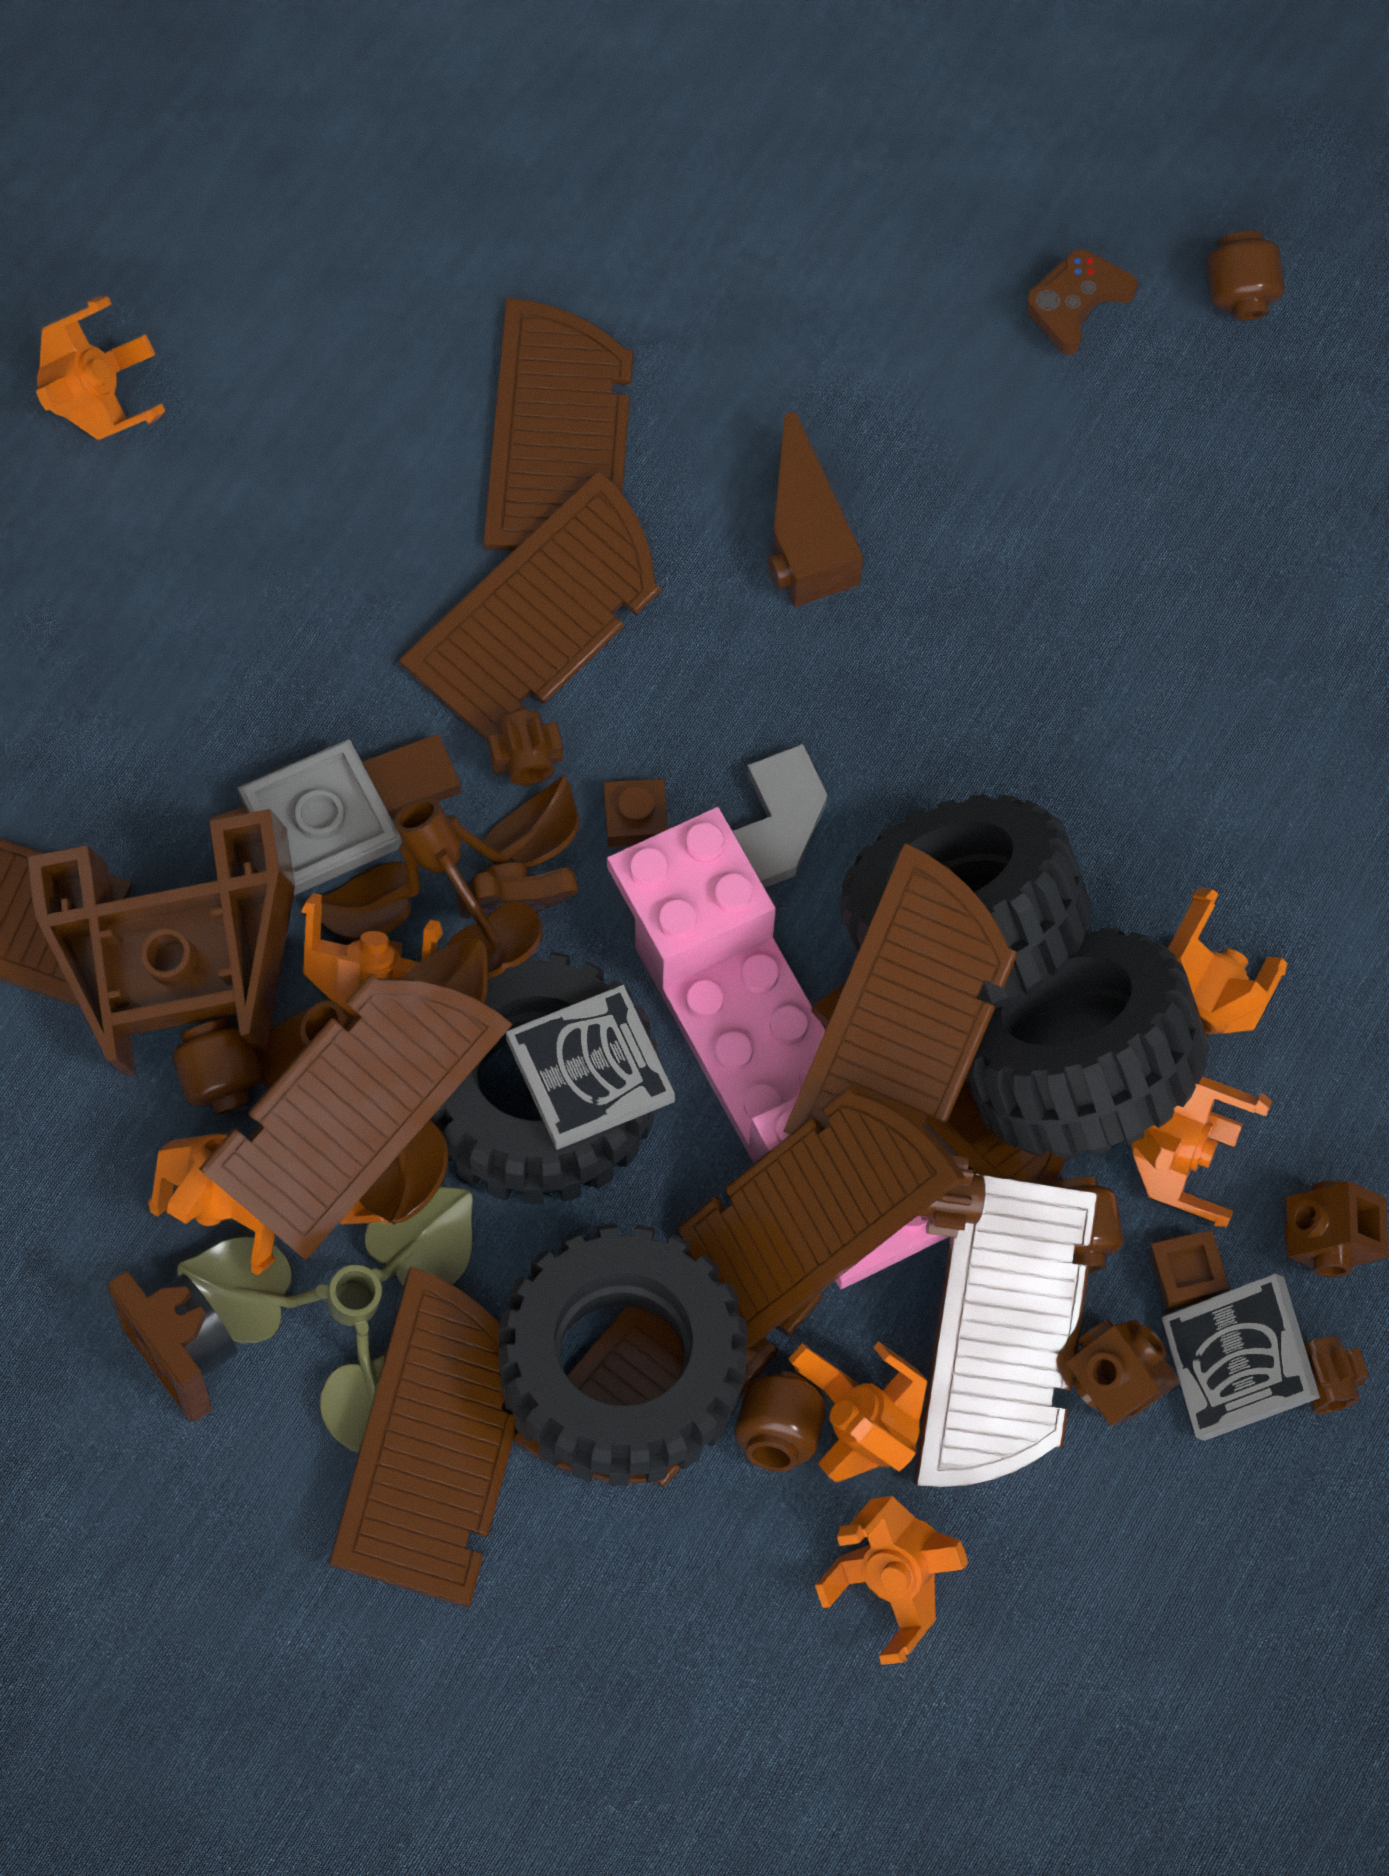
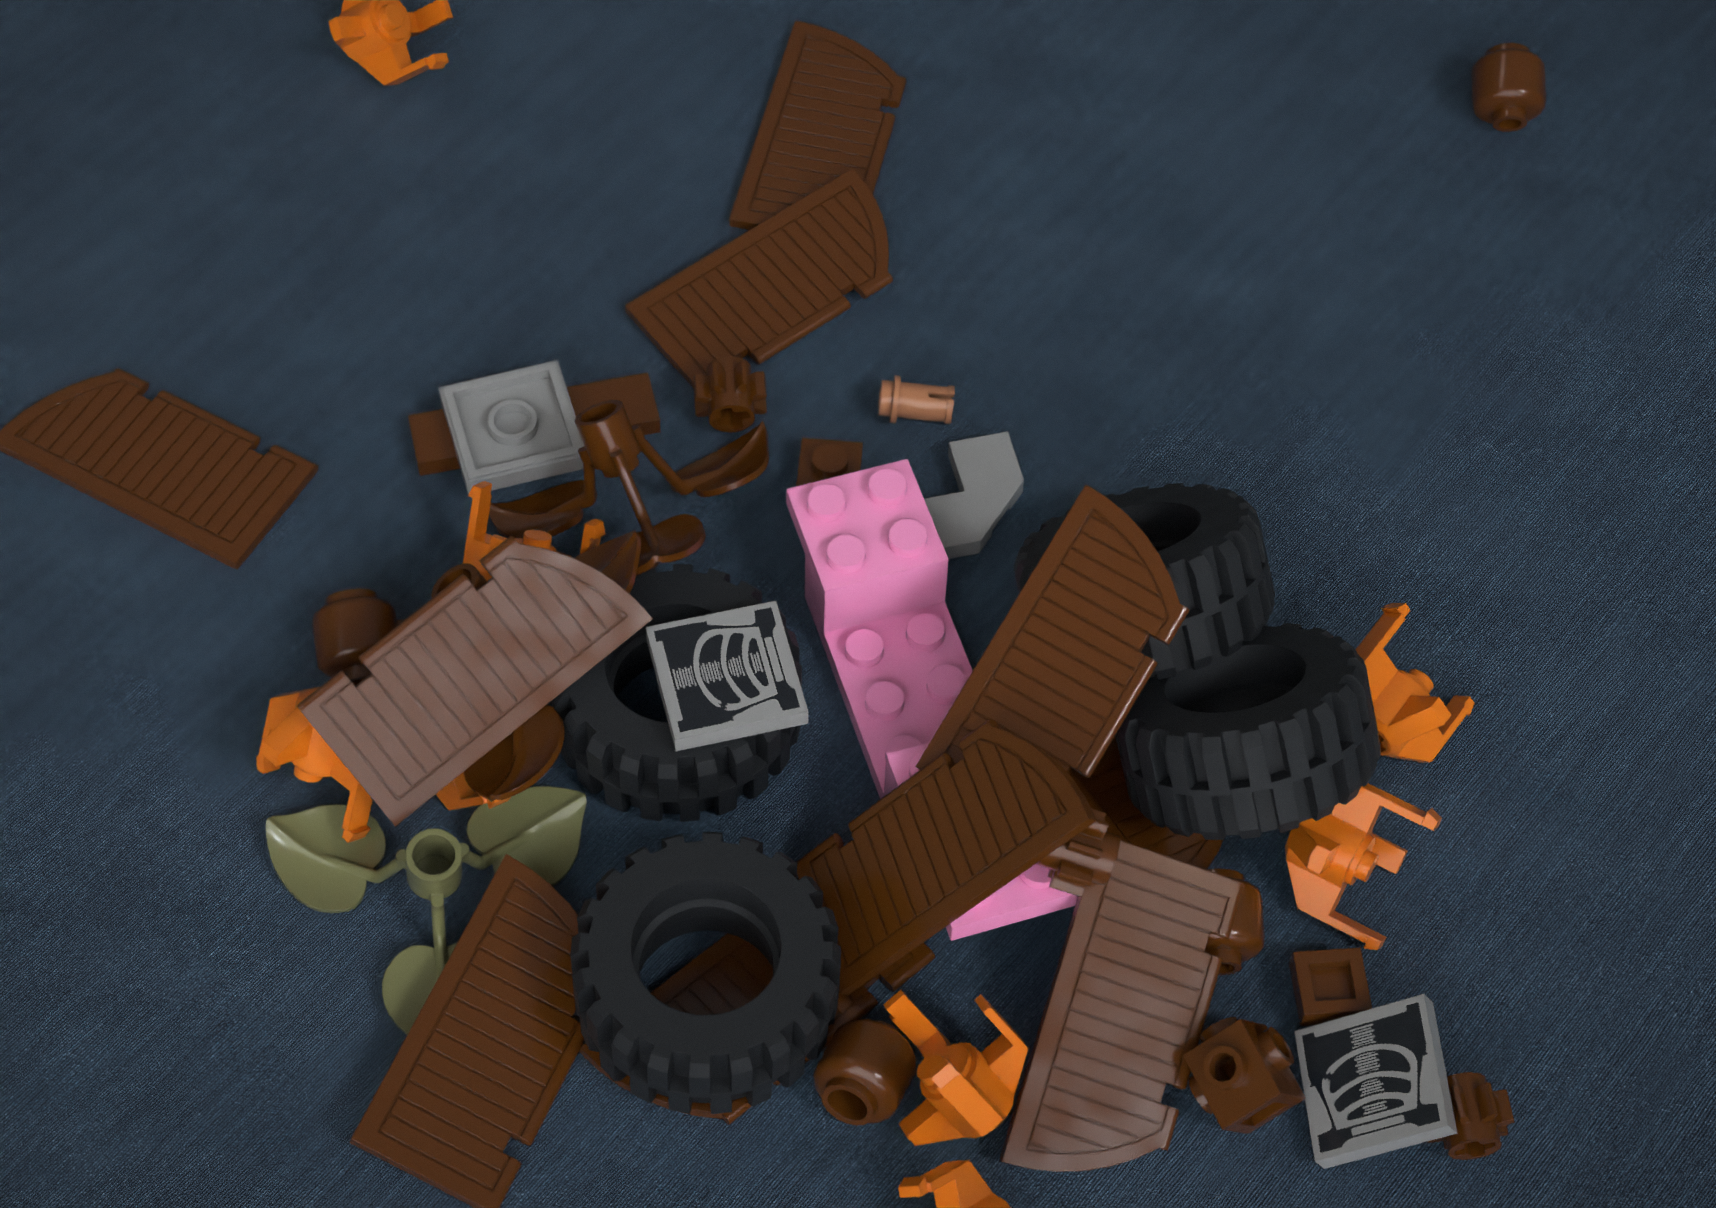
camera: 10 degrees right, 10 degrees down
(175, 1336) = (244, 882): reddish brown piece -> none
(177, 950) = (339, 515): reddish brown wedge -> none
(511, 882) = (721, 521): reddish brown piece -> none
(707, 724) = (915, 401): none -> nougat pin
(812, 539) = (1048, 250): reddish brown slope -> none
(1072, 291) = (1335, 81): reddish brown piece -> none
(1336, 1227) = (1496, 963): reddish brown brick -> none

